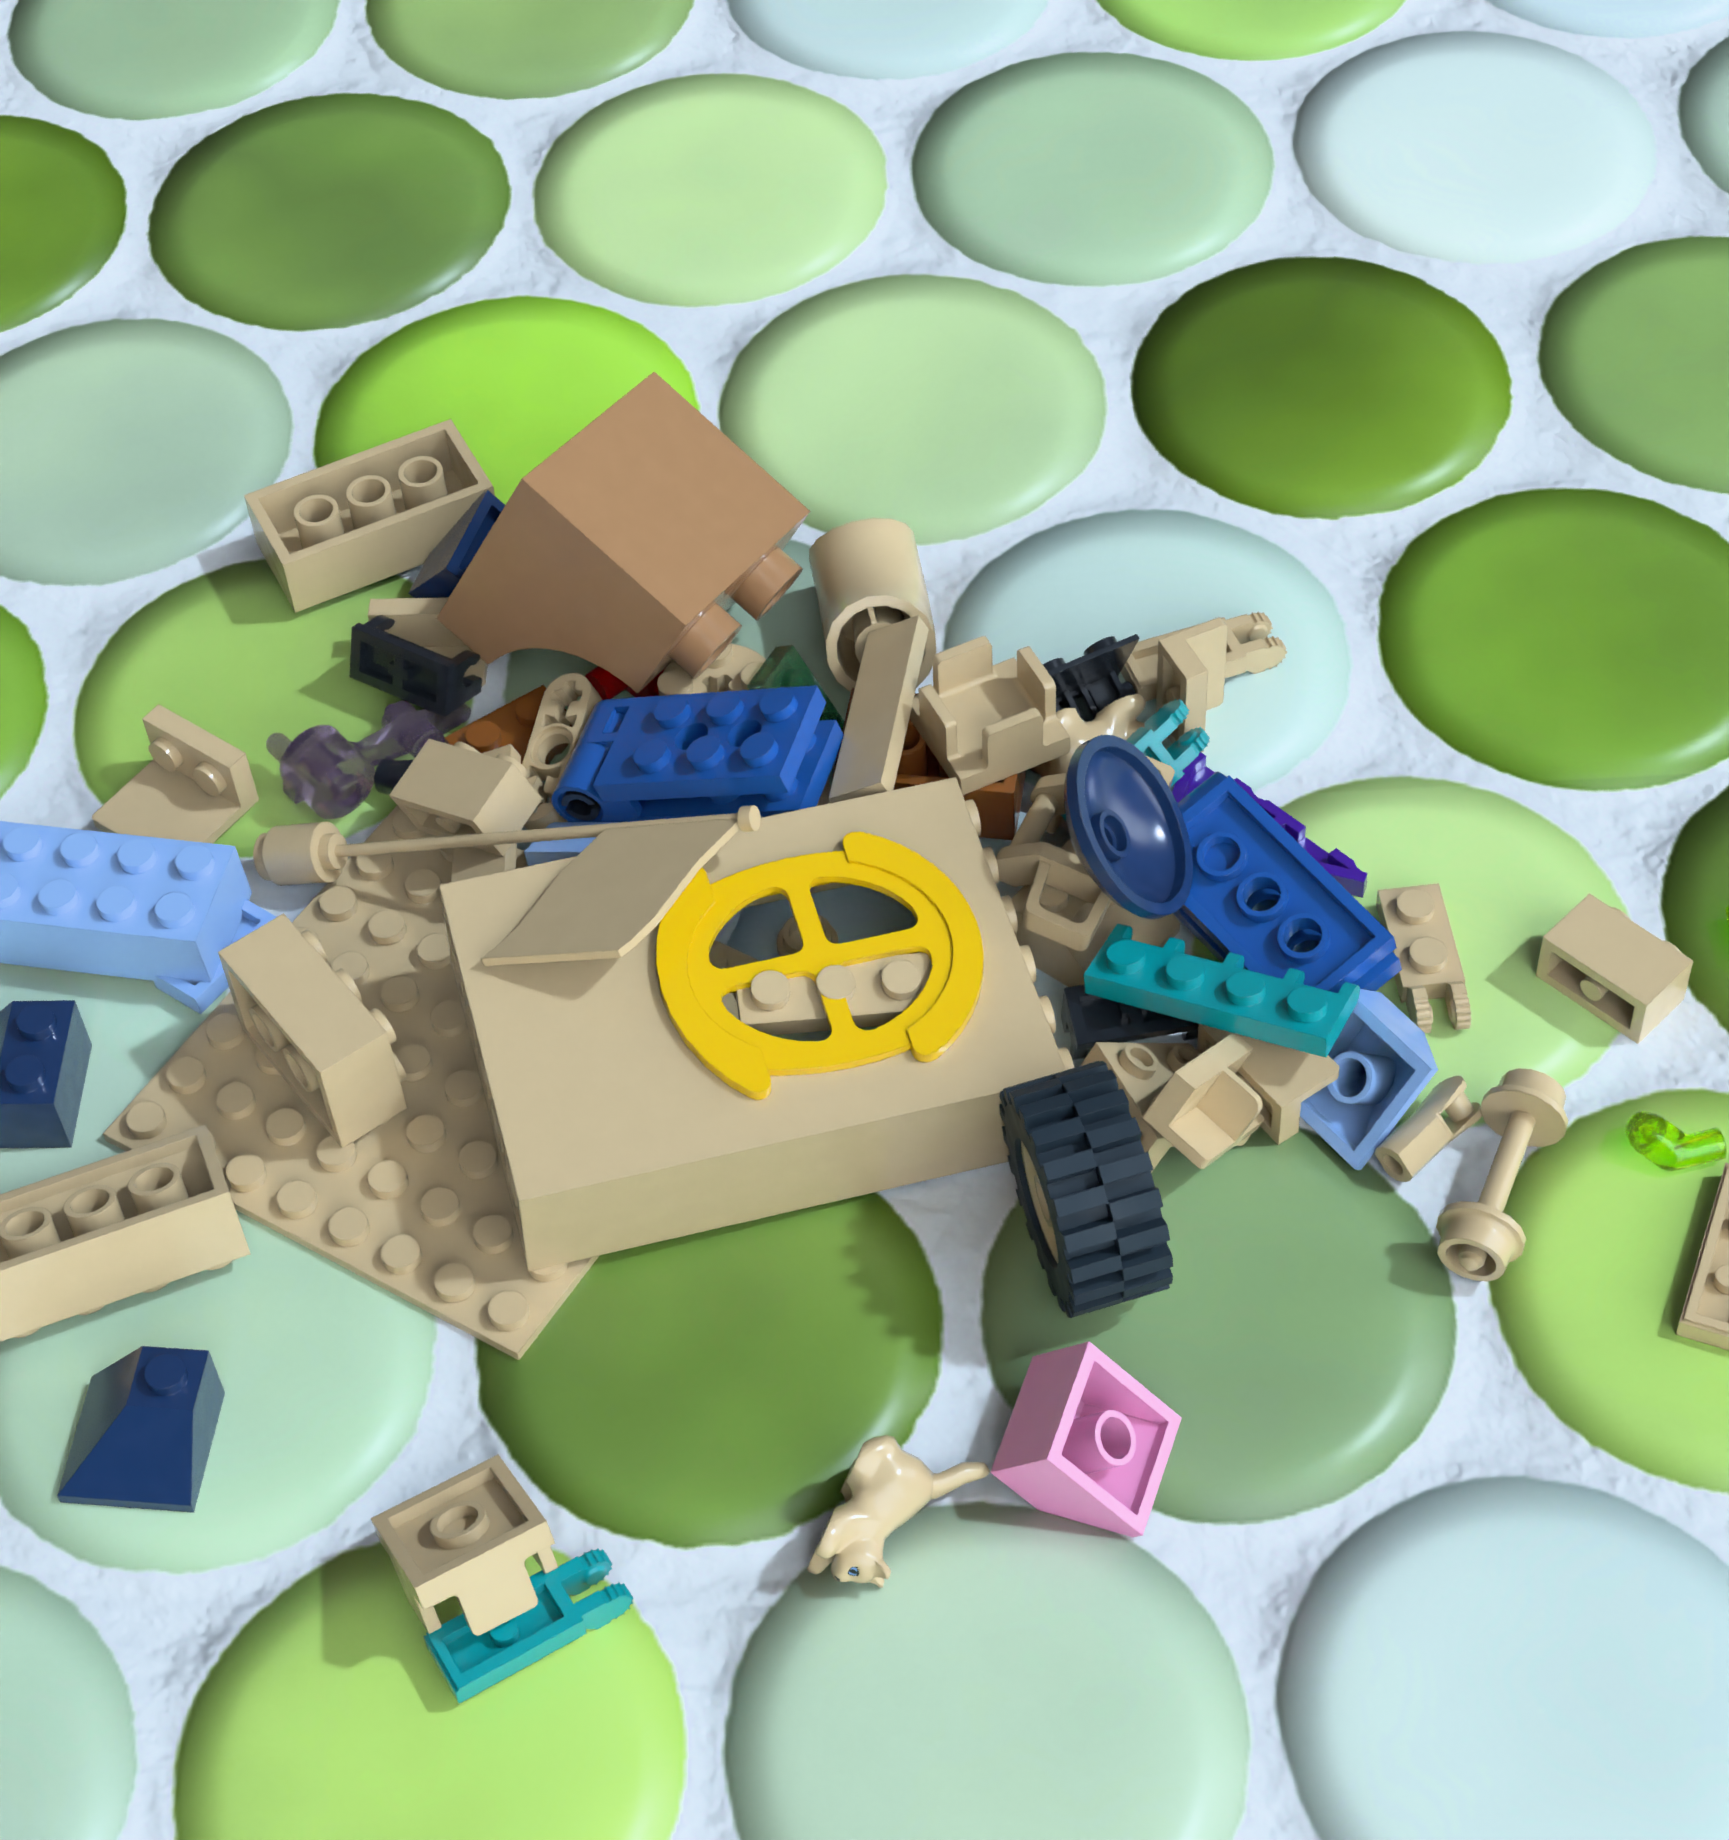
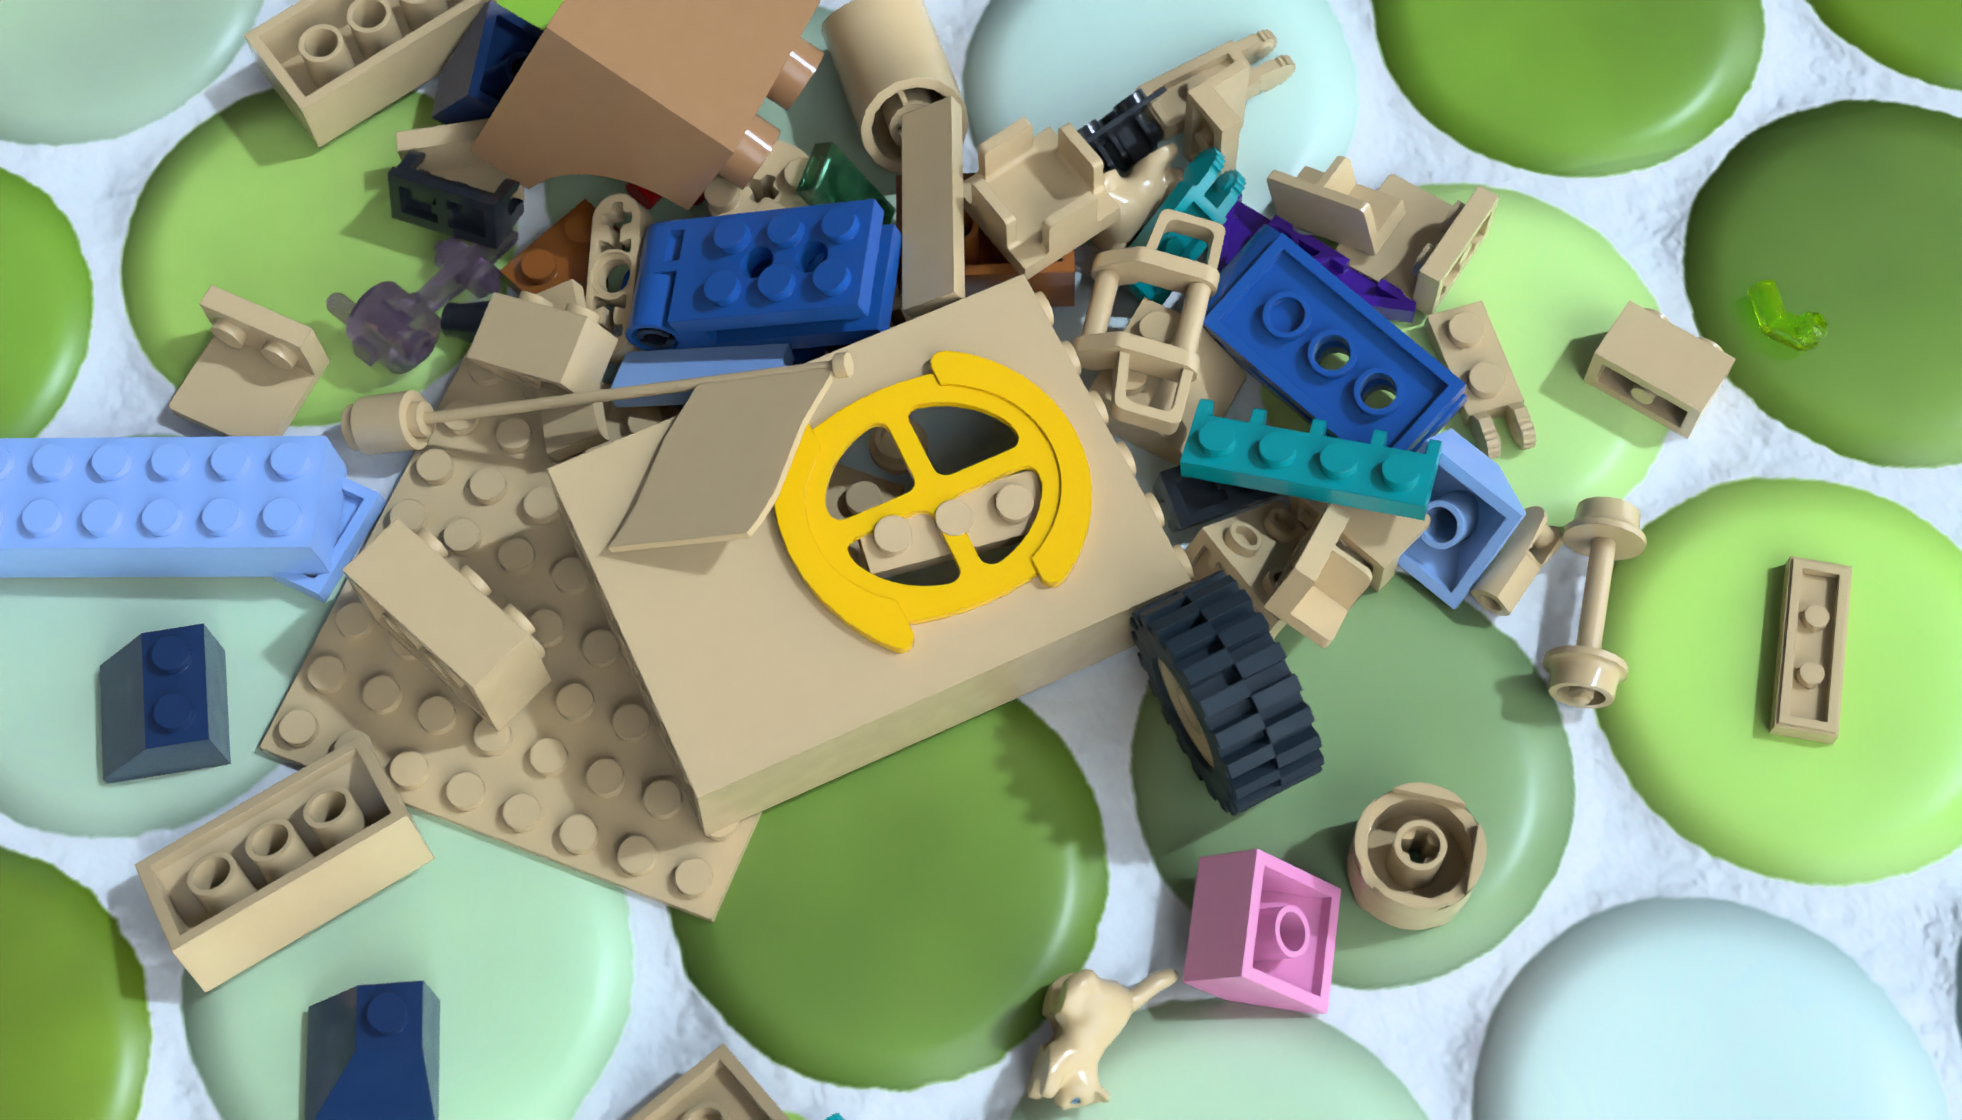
camera: 10 degrees left, 15 degrees up
(1127, 827) = (1203, 313): dark blue dish -> none
(1262, 1387) = (1449, 846): none -> tan brick
(1299, 775) = (1336, 206): none -> tan panel
(1385, 819) = (1428, 244): none -> tan bracket
(1671, 1147) = (1736, 545): clear neon green arm -> none

